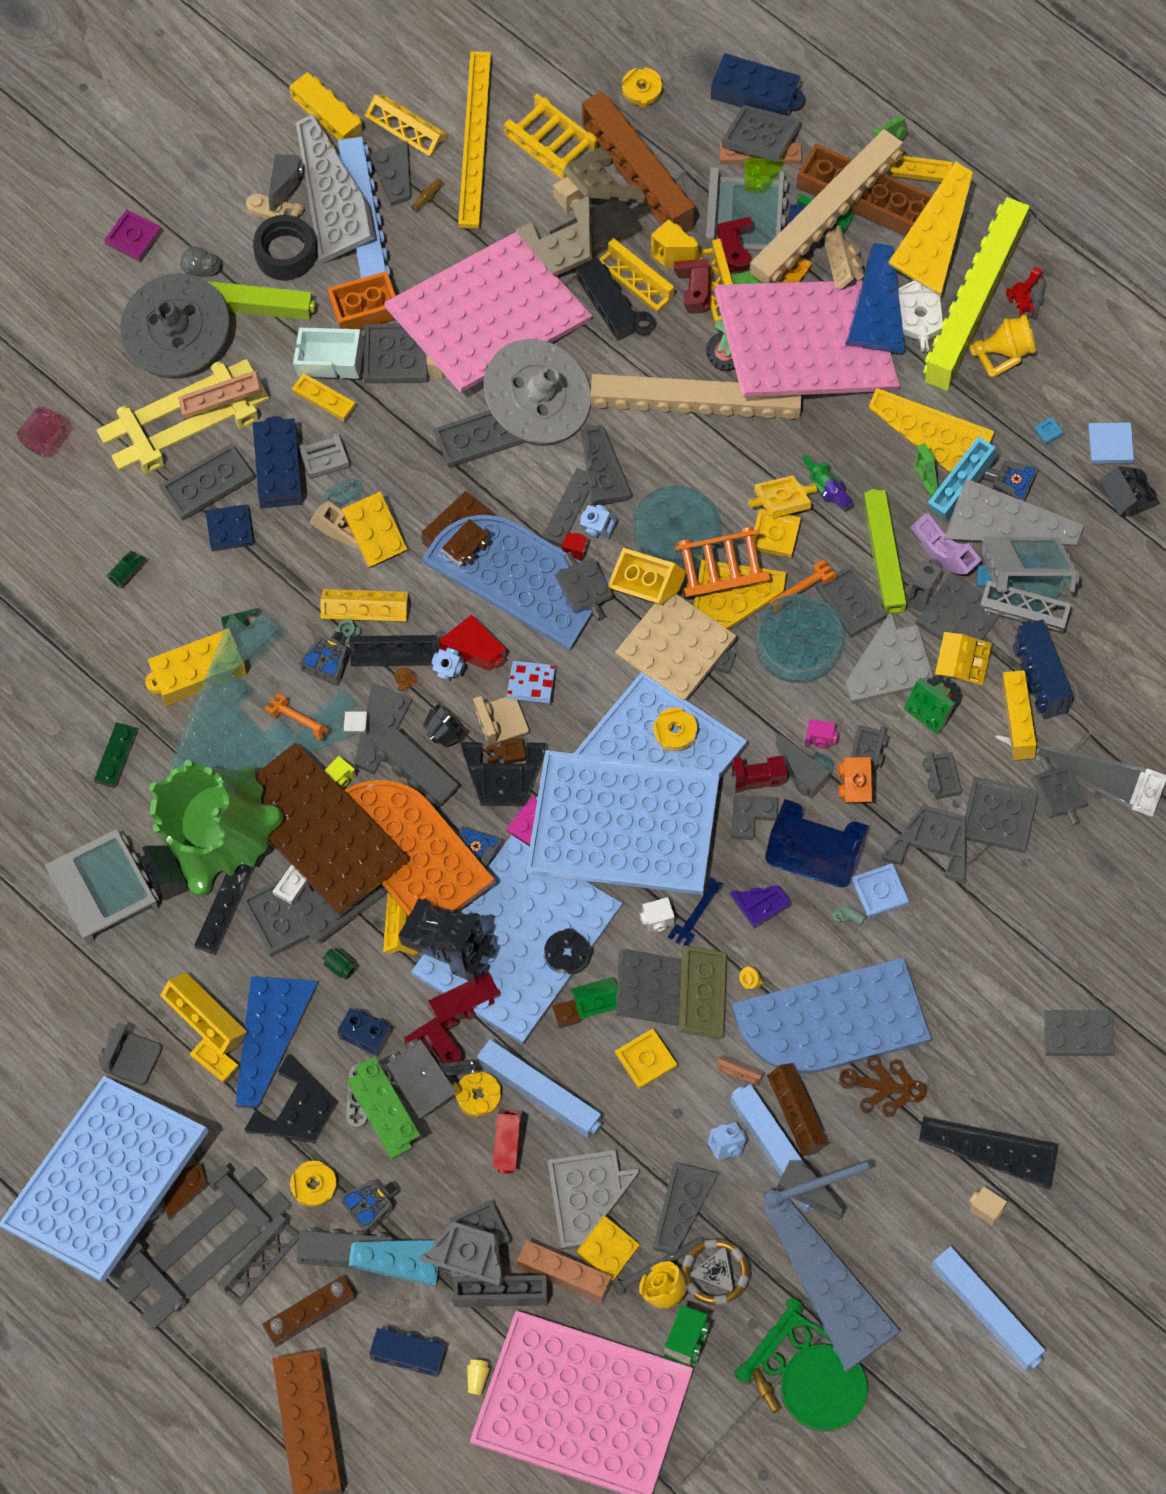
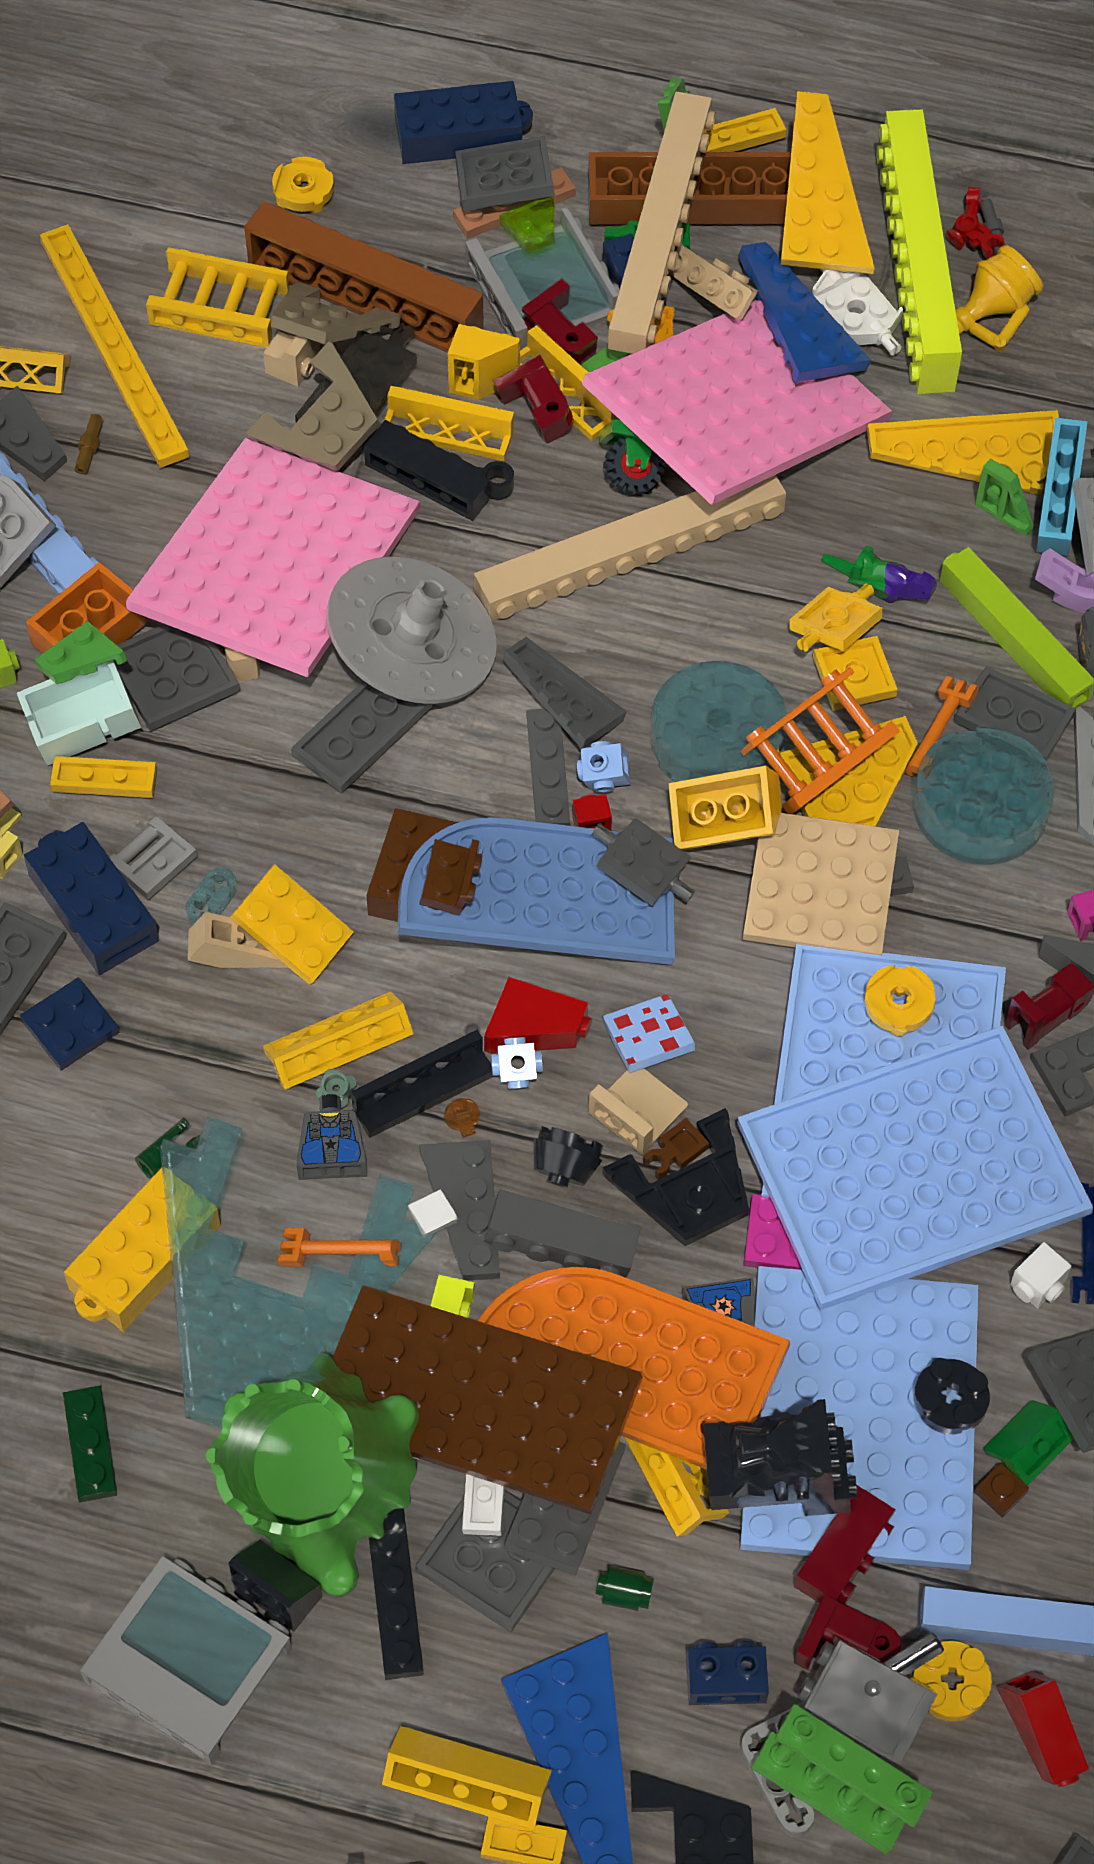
camera: 30 degrees left, 5 degrees down
(342, 321) = (79, 654): none -> bright green wing

